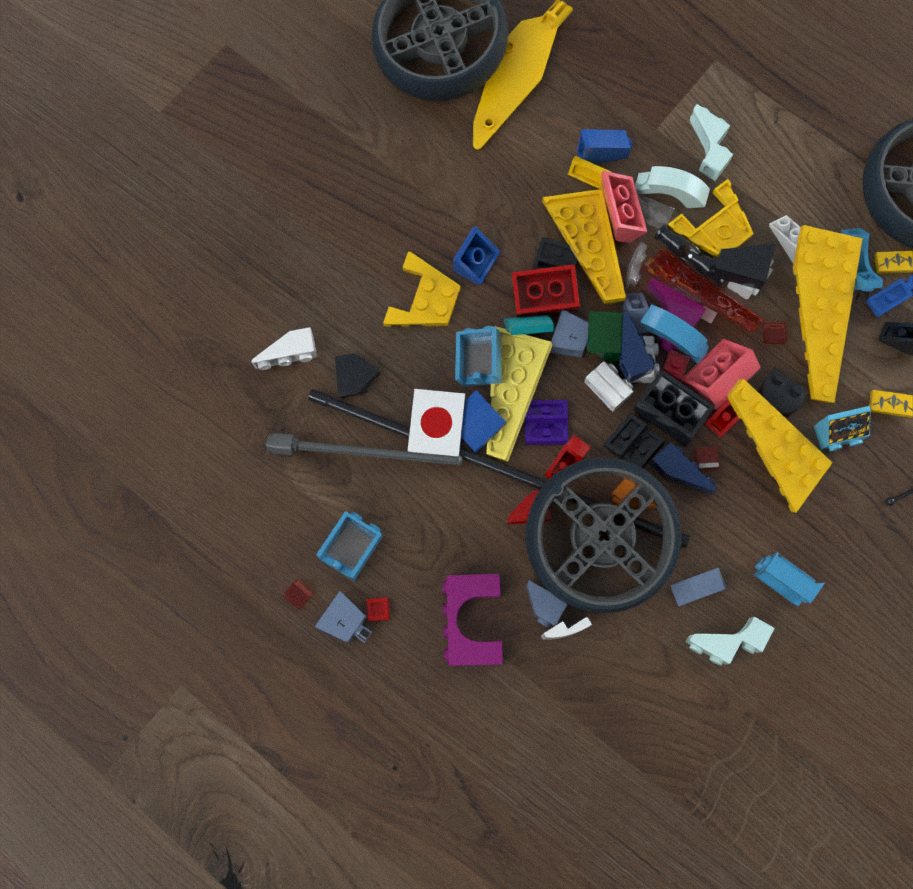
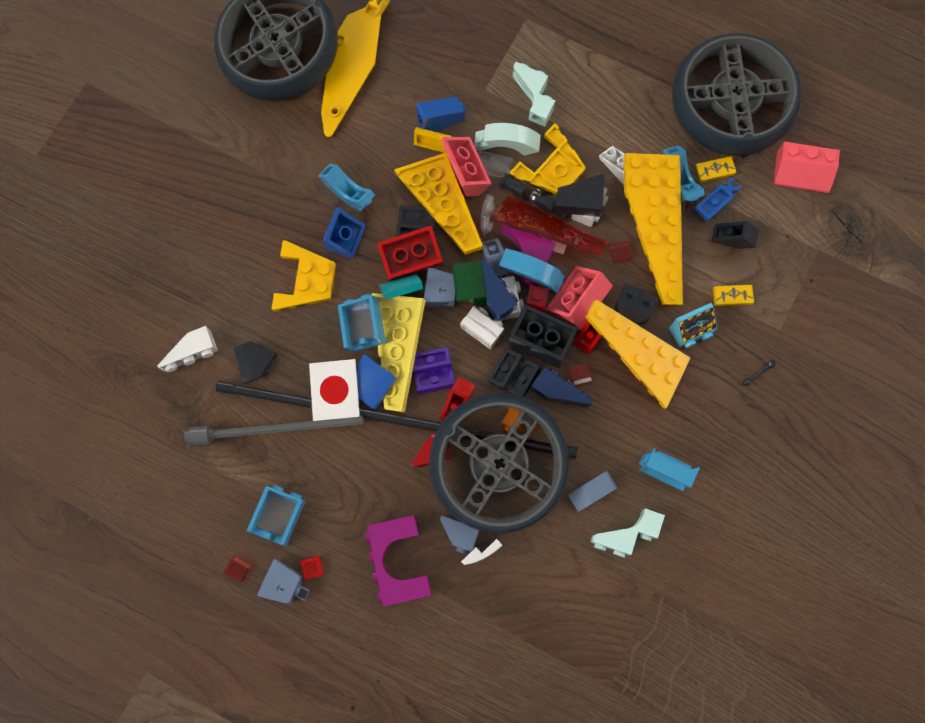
camera: 10 degrees left, 0 degrees up
(486, 208) = (345, 188): none -> dark azure arch

